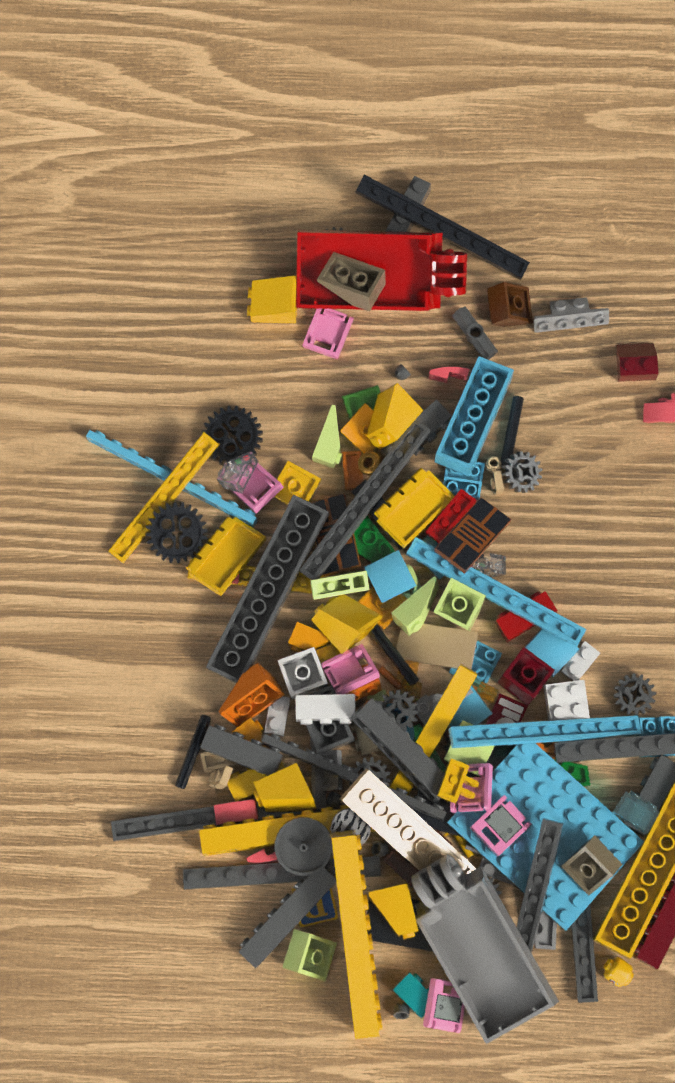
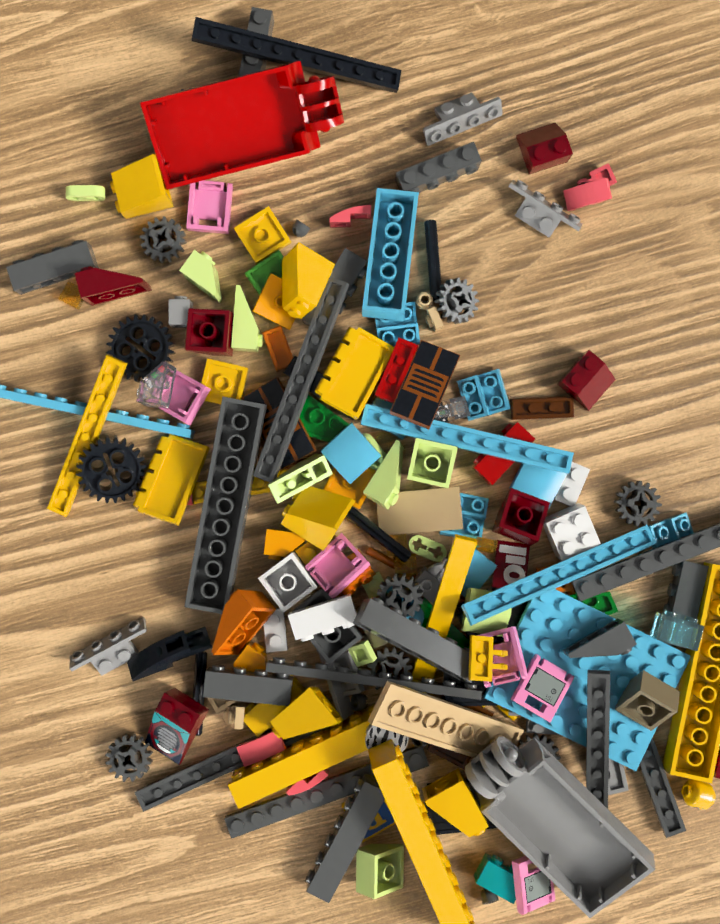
camera: 25 degrees left, 10 degrees up
(122, 783) = (136, 762): none -> dark grey gear
(128, 691) = (111, 650): none -> light grey bracket
(164, 772) = (175, 724): none -> dark red slope
(173, 704) = (166, 651): none -> black slope
(176, 346) = (51, 267): none -> dark grey brick
(186, 374) = (71, 295): none -> clear yellow tile
(220, 374) = (102, 286): none -> dark red slope
(223, 291) = (85, 193): none -> yellowish green beam
(273, 342) = (165, 232): none -> dark grey gear
(276, 415) = (179, 311): none -> light grey brick
(297, 438) = (209, 332): none -> dark red slope
(303, 846) = (342, 771): dark grey piece -> none
(305, 388) = (201, 272): none -> yellowish green slope
(349, 754) = (362, 653): none -> yellowish green plate
(353, 280) = (218, 141): dark tan slope -> none
(367, 369) = (262, 235): none -> yellow plate
(369, 462) = (294, 336): pearl gold head -> none
(437, 678) = (424, 552): none -> yellowish green beam
(467, 324) = (355, 156): dark grey piece -> none
(509, 305) = (393, 122): reddish brown slope -> none
(524, 561) = (484, 394): none -> medium azure slope
(538, 355) = (439, 169): none -> dark grey brick
(568, 801) = (607, 641): none -> dark grey slope
(572, 587) = (542, 408): none -> reddish brown tile
(618, 416) = (541, 213): none -> light grey bracket
(619, 573) = (587, 380): none -> dark red slope

